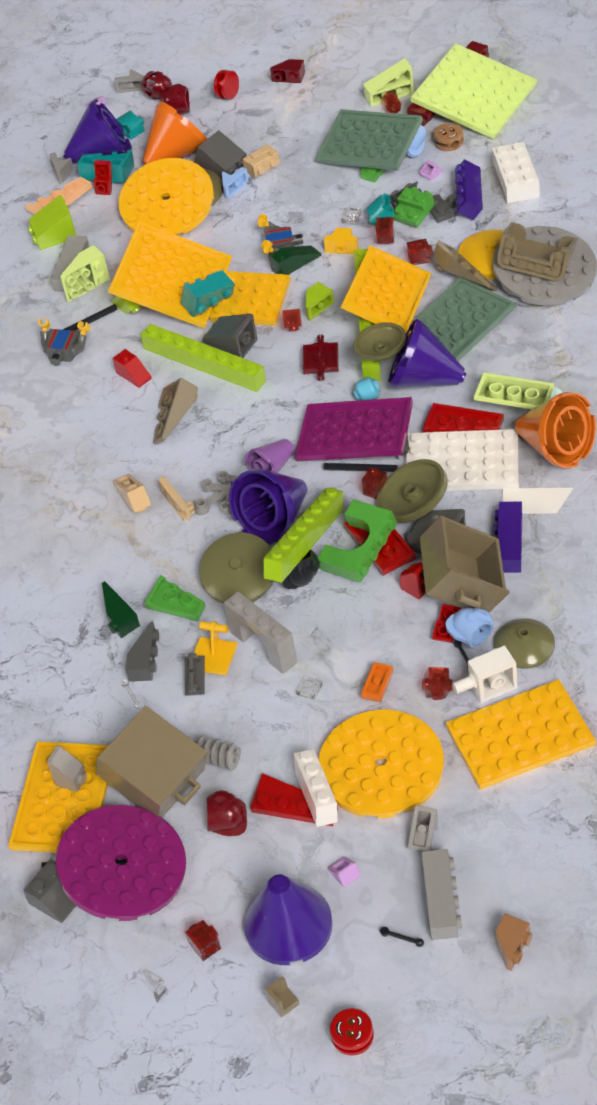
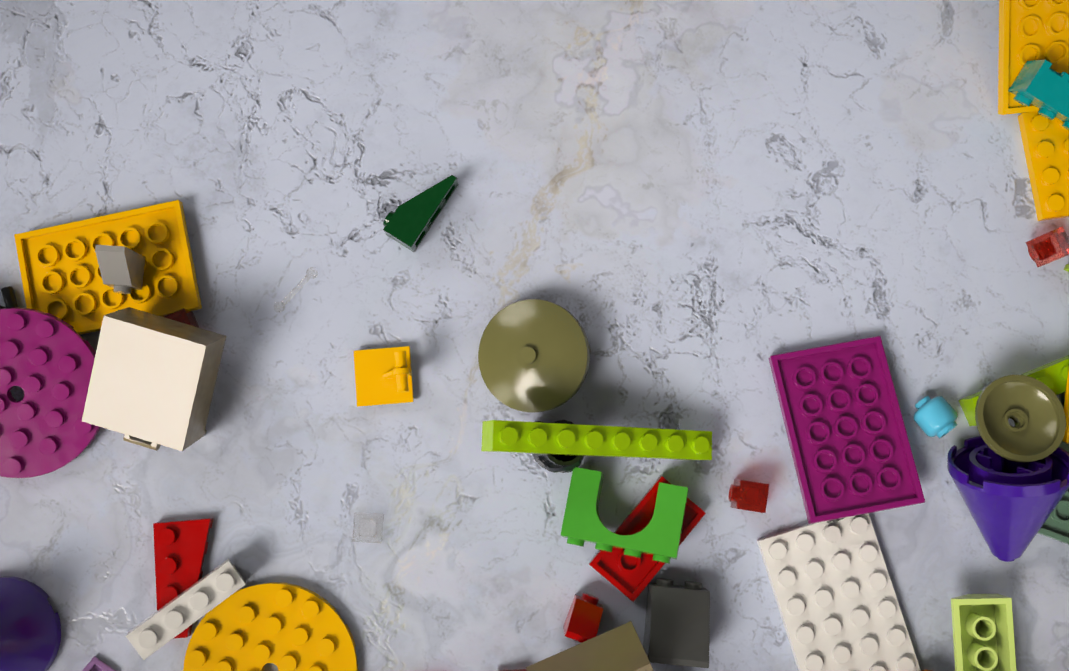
camera: 60 degrees right, 35 degrees up
(131, 368) = (876, 40): red slope -> none
(133, 493) = (637, 143): tan slope -> none
(140, 658) = (347, 281): dark grey slope -> none
(174, 403) = (827, 137): dark tan wedge -> none
(174, 601) = (461, 283): bright green wing -> none
(184, 509) = (624, 233): tan hinge -> none
(194, 674) = (338, 366): dark grey hinge -> none
(202, 505) = (680, 281): light grey plant -> none
(203, 357) = (930, 139): lime brick -> none
(222, 755) = (219, 447): light grey piece -> none
(226, 814) = (126, 498): dark red helmet -> none
(233, 334) = (985, 164): dark grey slope -> none
(247, 619) = (407, 455): light grey arch -> none
(266, 502) = (654, 363): dark purple cone -> none
(270, 456) = (752, 323): medium lavender cone -> none
(320, 358) = (984, 319): dark red plate -> none
(359, 467) = (782, 459): black bar -> none
(377, 682) = (396, 622): orange plate -> none
(413, 490) = (740, 565): olive dish -> none
(453, 418) = (916, 580): red wing -> none

